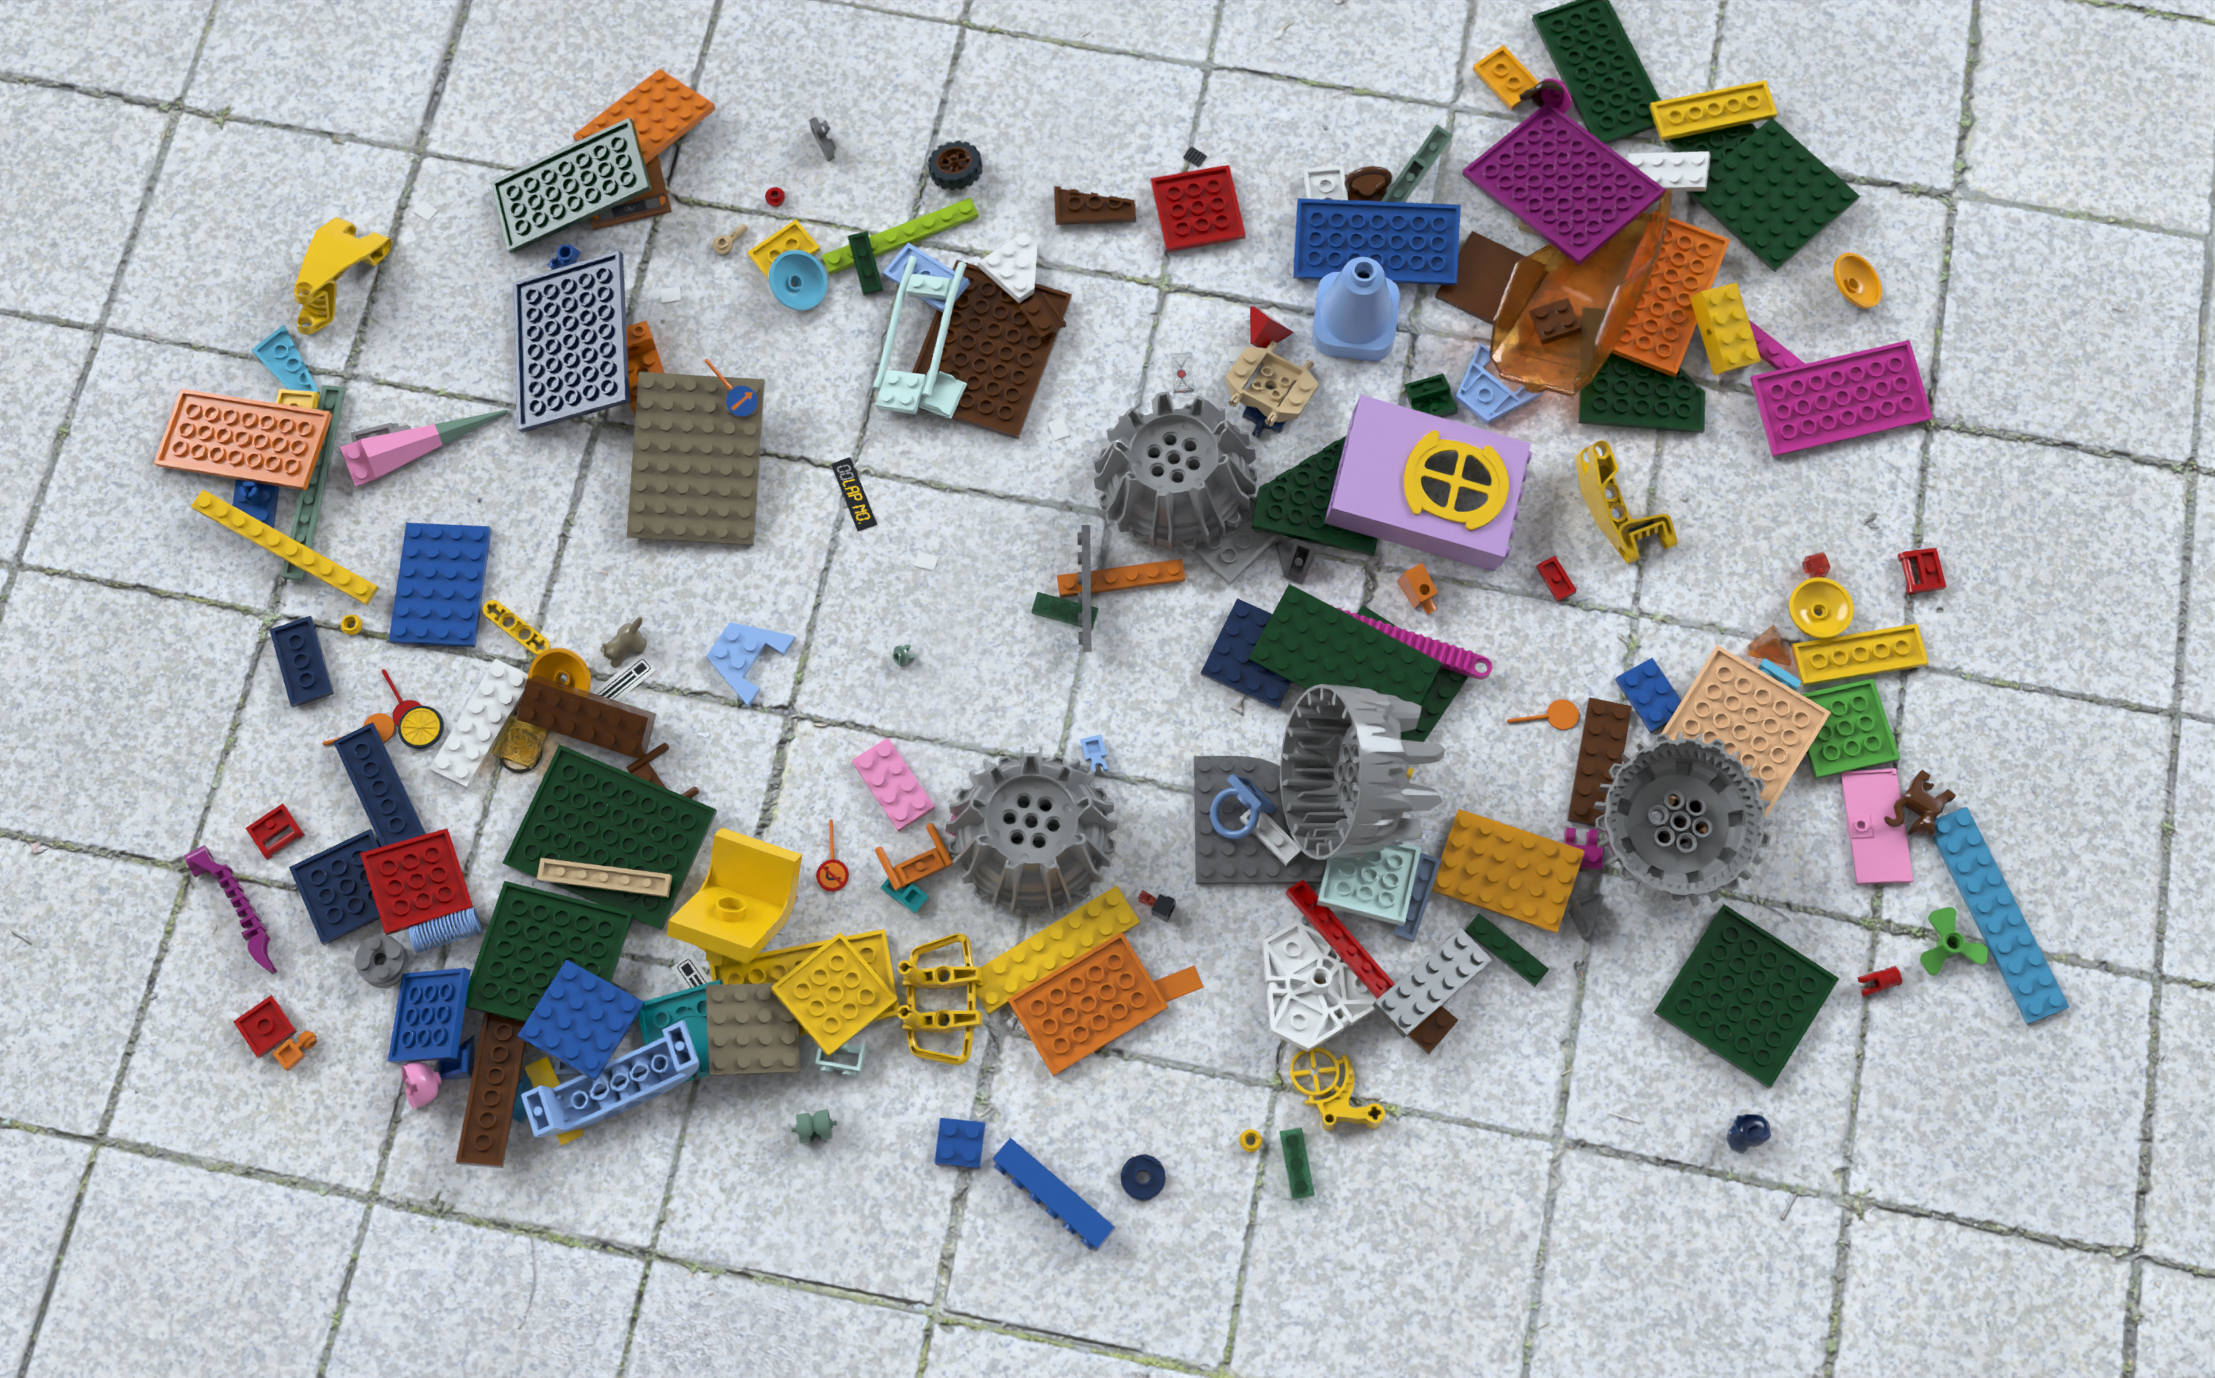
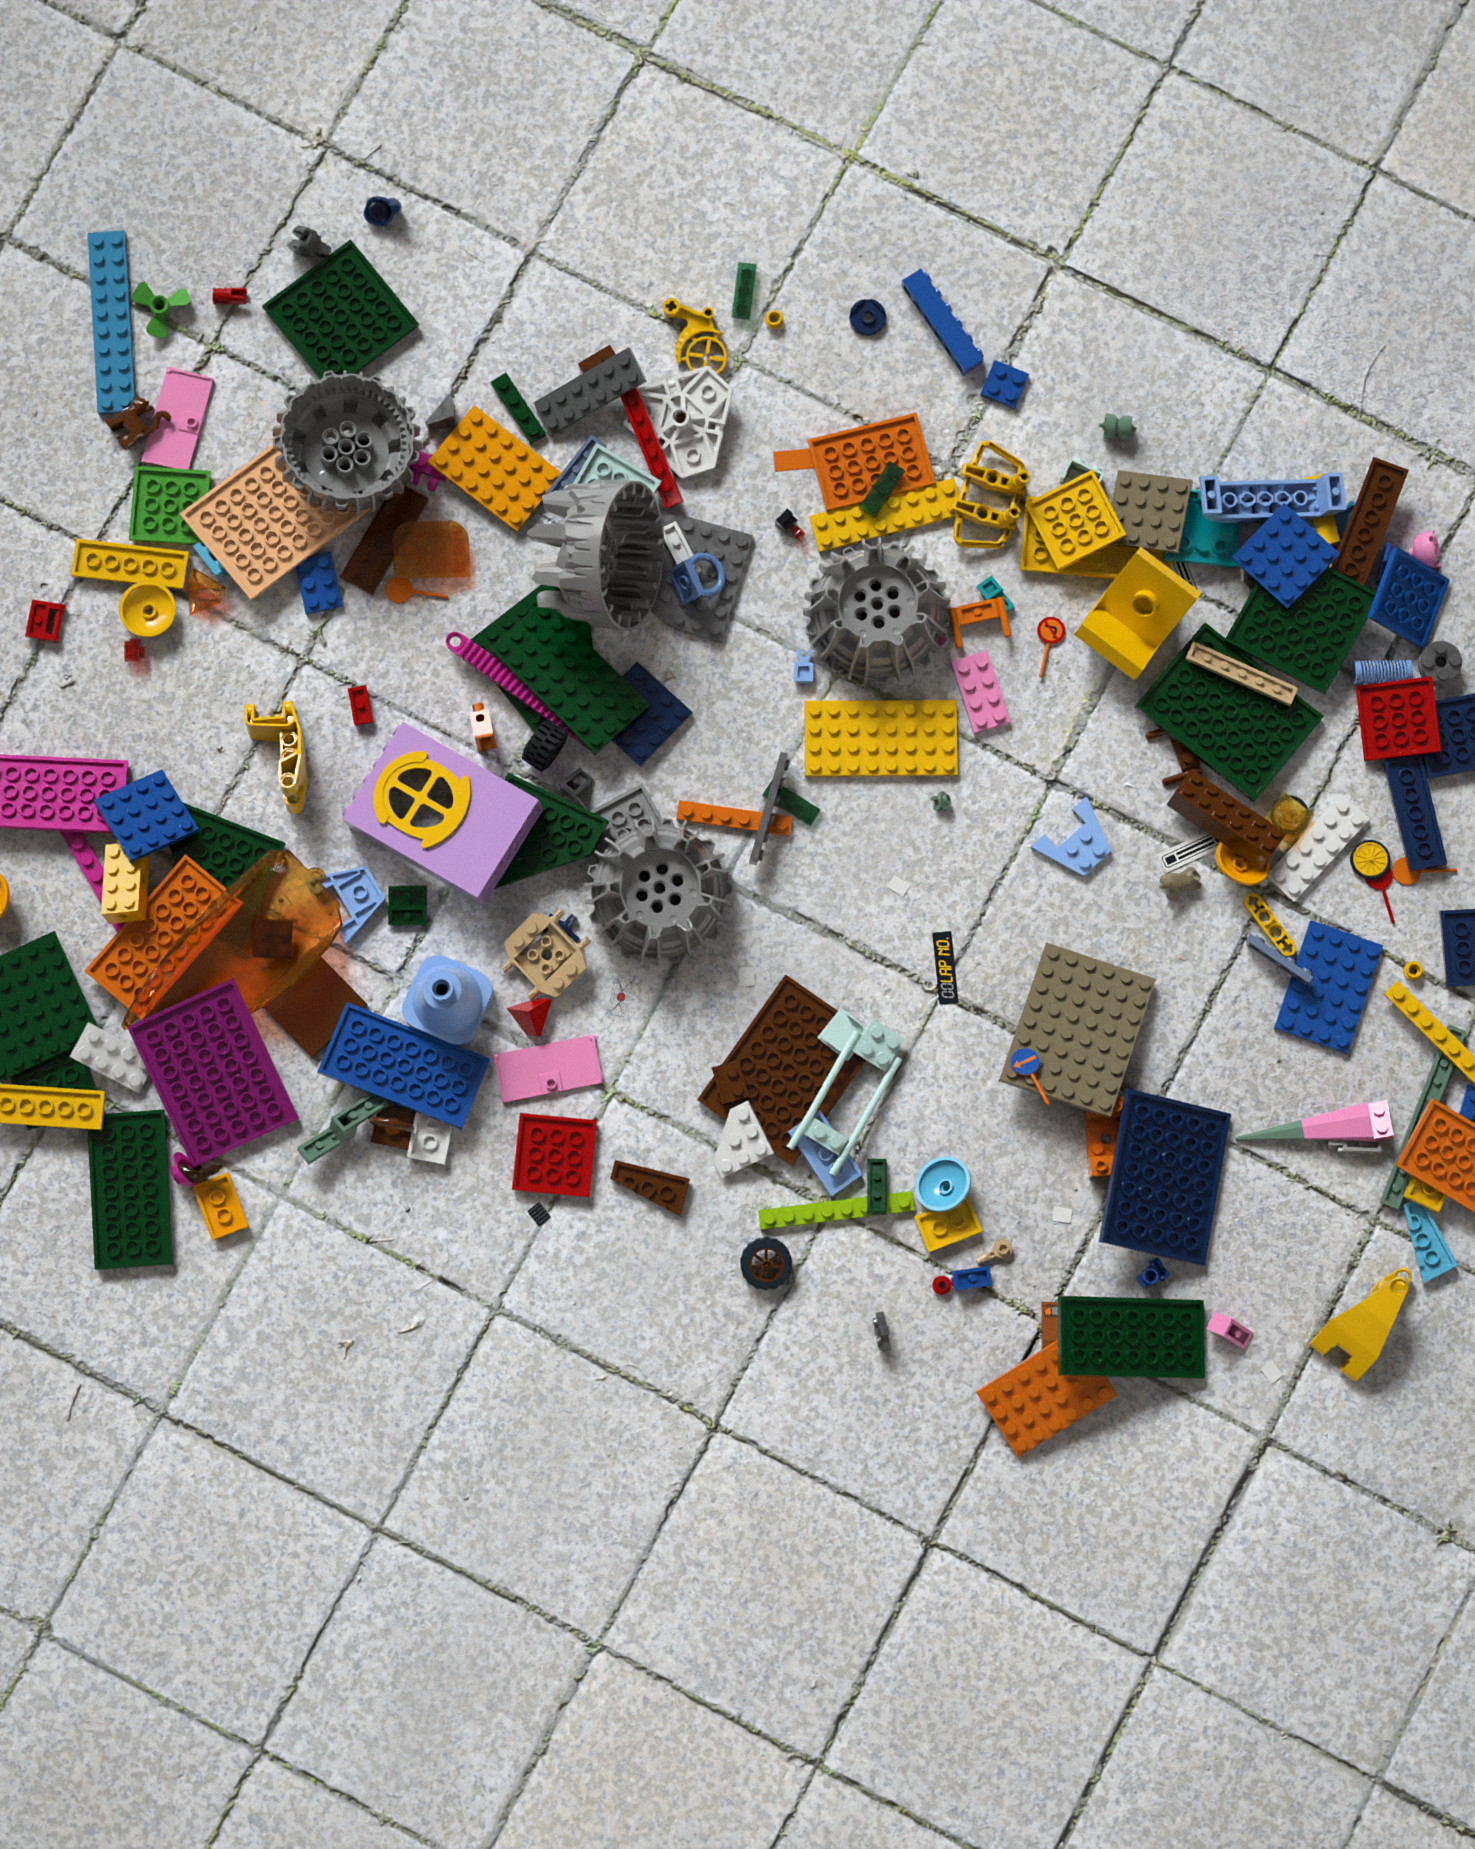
camera: 165 degrees left, 10 degrees up
(475, 230) = (1229, 1330): none -> bright pink slope
(487, 585) = (1274, 955): none -> sand blue plate
(746, 207) = (971, 1278): none -> blue plate
(988, 704) = (880, 738): none -> yellow plate
(1065, 971) = (882, 489): none -> clear green plate
(1231, 286) = (548, 1068): none -> bright pink door
(1346, 583) = (544, 745): none -> black tyre
(1544, 758) = (430, 550): none -> clear orange plate
(1732, 396) = (146, 816): none -> blue plate
(1815, 1065) = (309, 243): none -> dark grey hinge

